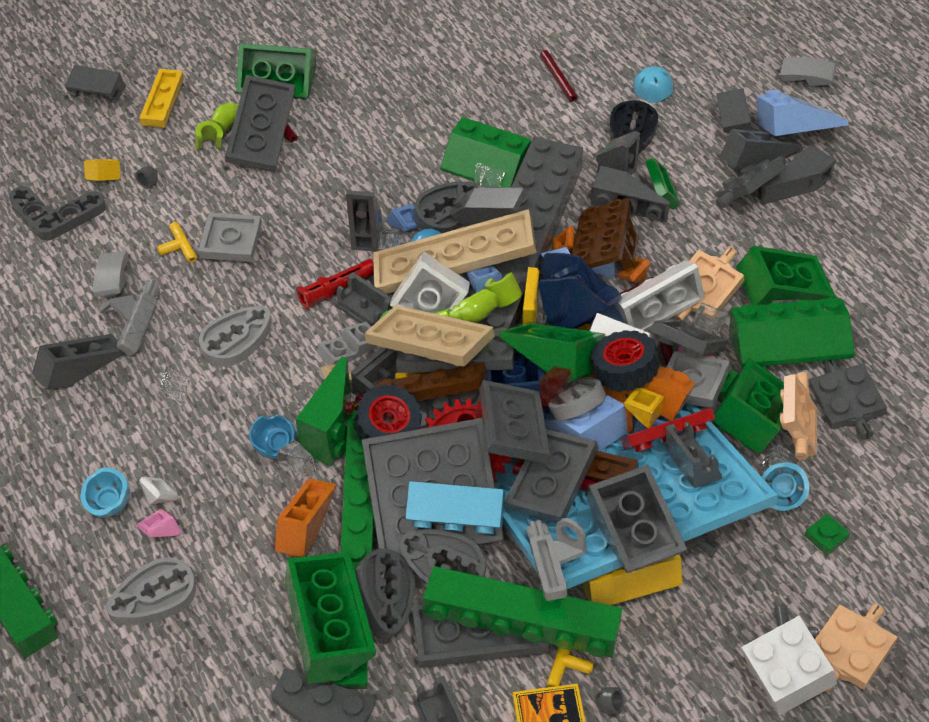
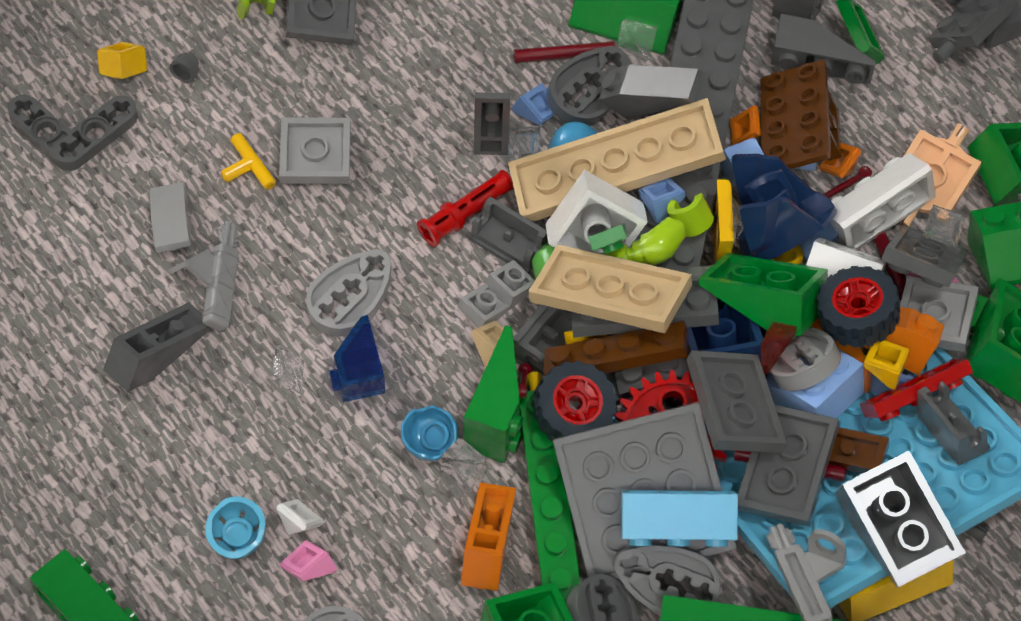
camera: 10 degrees left, 10 degrees up
(228, 384) = (358, 365): none -> clear blue slope
(421, 185) = (556, 52): none -> dark red piece
(435, 300) = (609, 239): none -> plate

